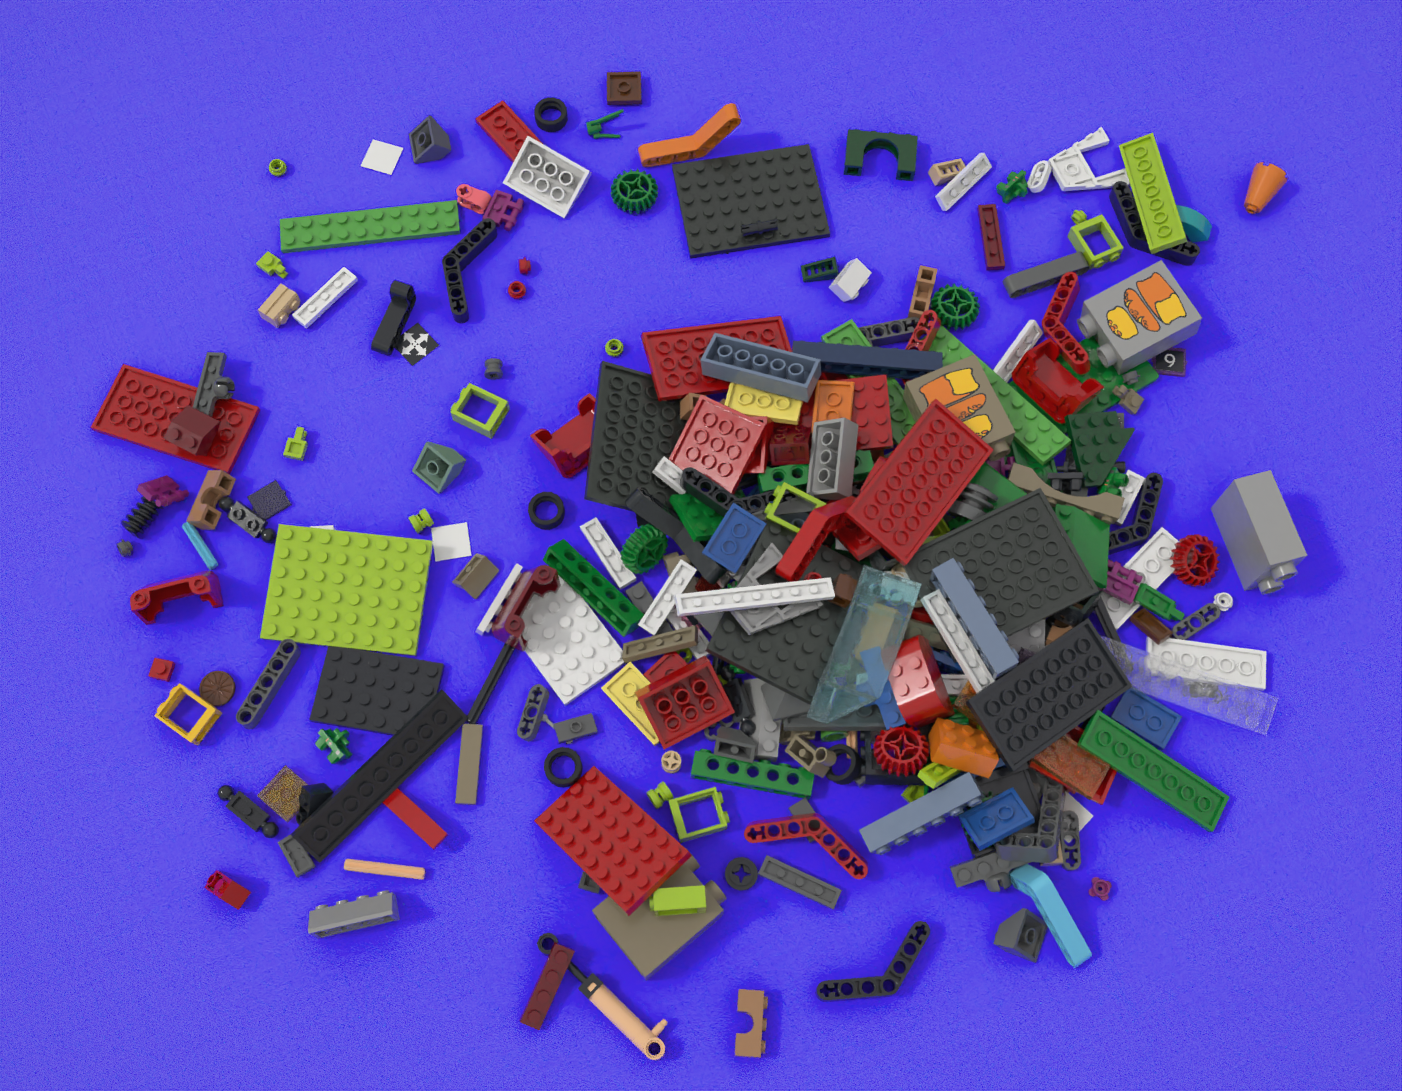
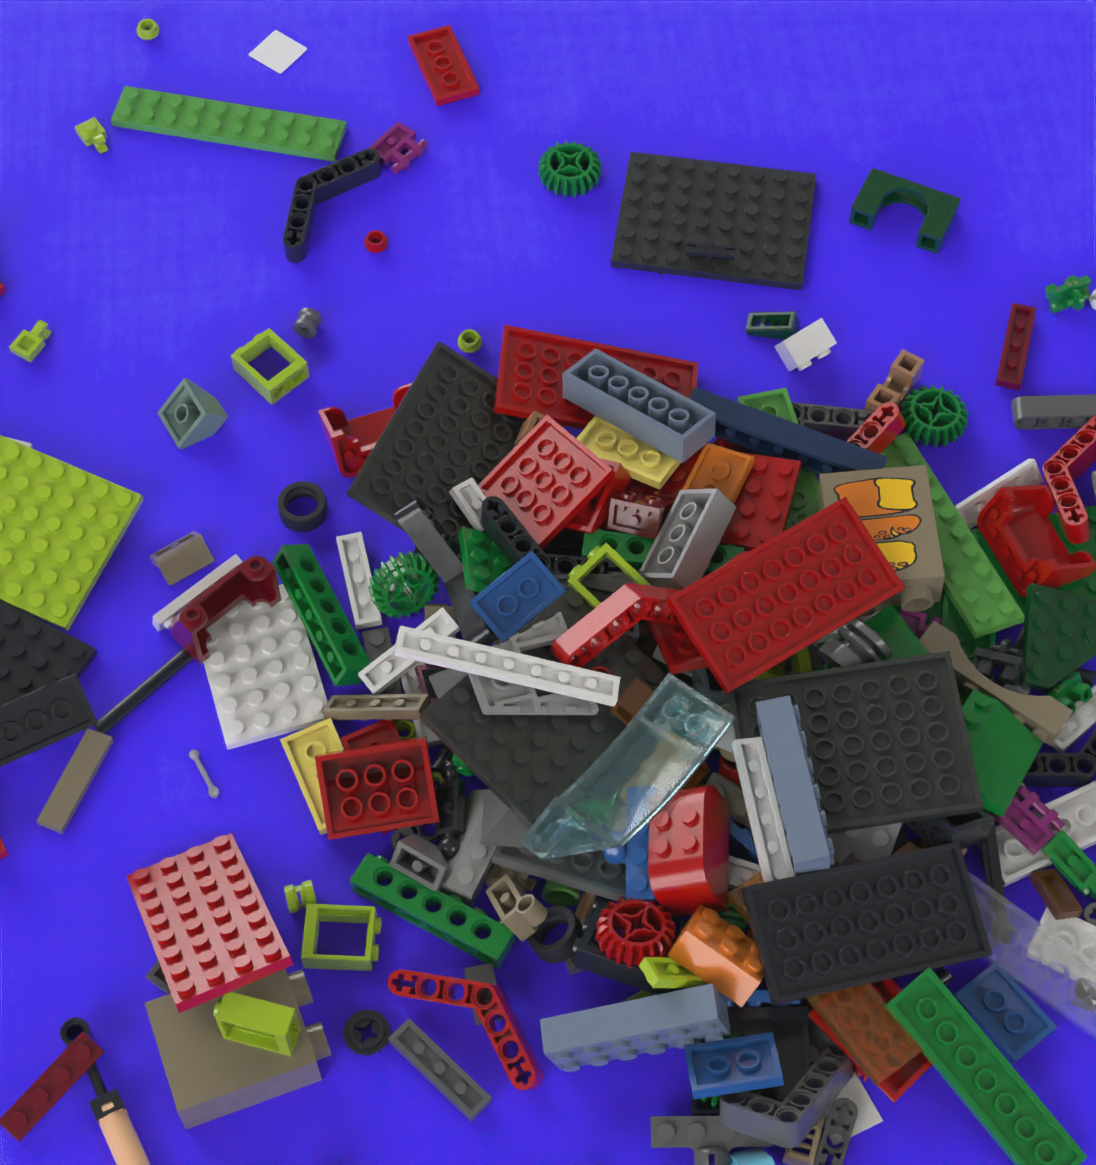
camera: 20 degrees right, 10 degrees down
(279, 305) = (80, 180): tan brick -> none
(325, 297) = (139, 186): white plate -> none
(395, 318) = (213, 232): black beam -> none
(415, 344) = (225, 270): black sticker -> none
(416, 522) = (141, 471): lime wheel -> none
(429, 141) = (340, 48): dark grey slope -> none
(451, 541) = (169, 509): white sticker -> none
(473, 198) = (365, 123): coral piece -> none
(524, 266) = (397, 217): red plate -> none
(536, 720) = (166, 762): dark grey beam -> none
(547, 177) = (466, 123): white slope -> none
(550, 103) = (499, 44): black tyre -> none
(563, 751) = (184, 803): black tyre -> none
(575, 728) = (227, 779): dark grey plate -> none
(594, 126) = (551, 83): green plant -> none
(624, 88) = (605, 50): reddish brown plate -> none
(671, 757) = (330, 854): tan wheel -> none
(694, 145) = (664, 137): orange beam -> none
(936, 171) = (974, 258): tan slope -> none
(963, 181) = (1003, 270): white plate -> none

